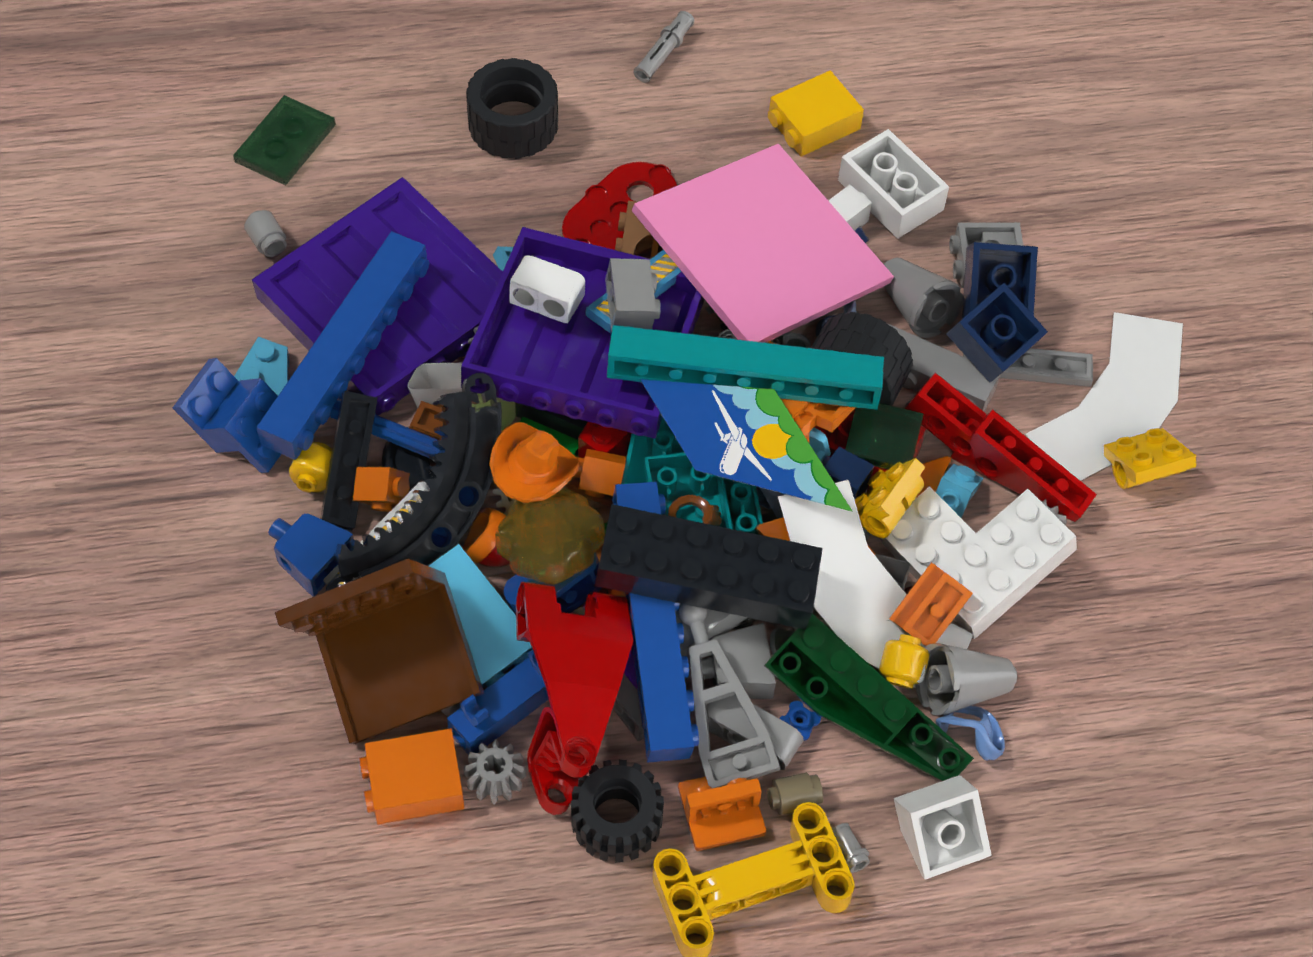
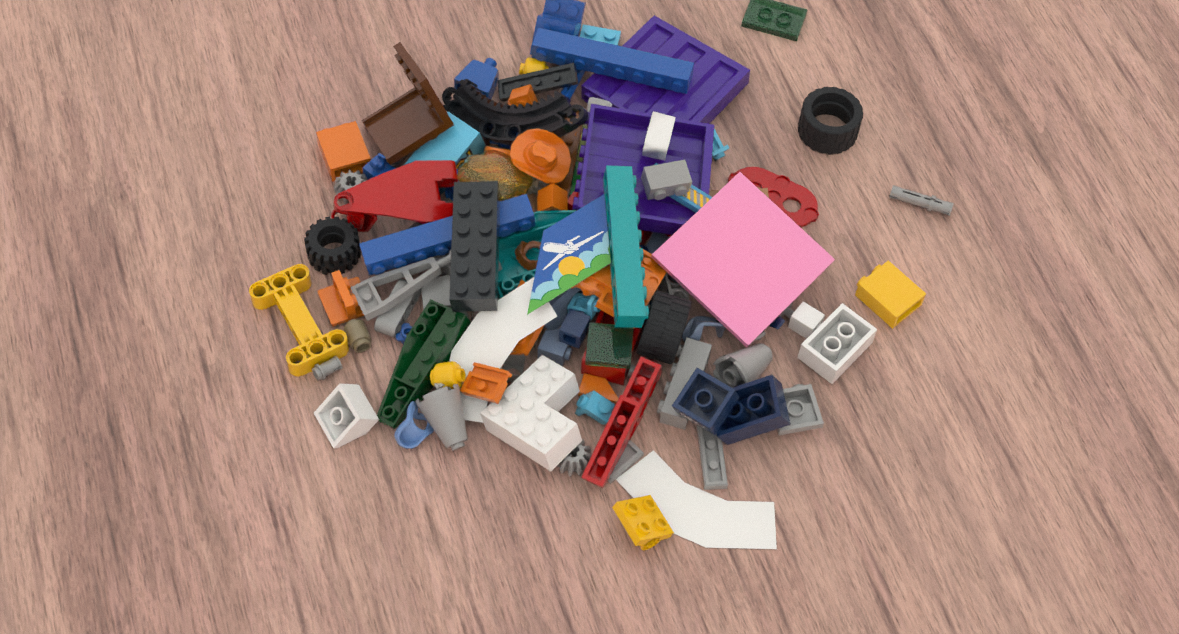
camera: 80 degrees right, 0 degrees up
(265, 233) = (696, 19): light grey brick -> none
(889, 497) = (548, 344): yellow plate -> none

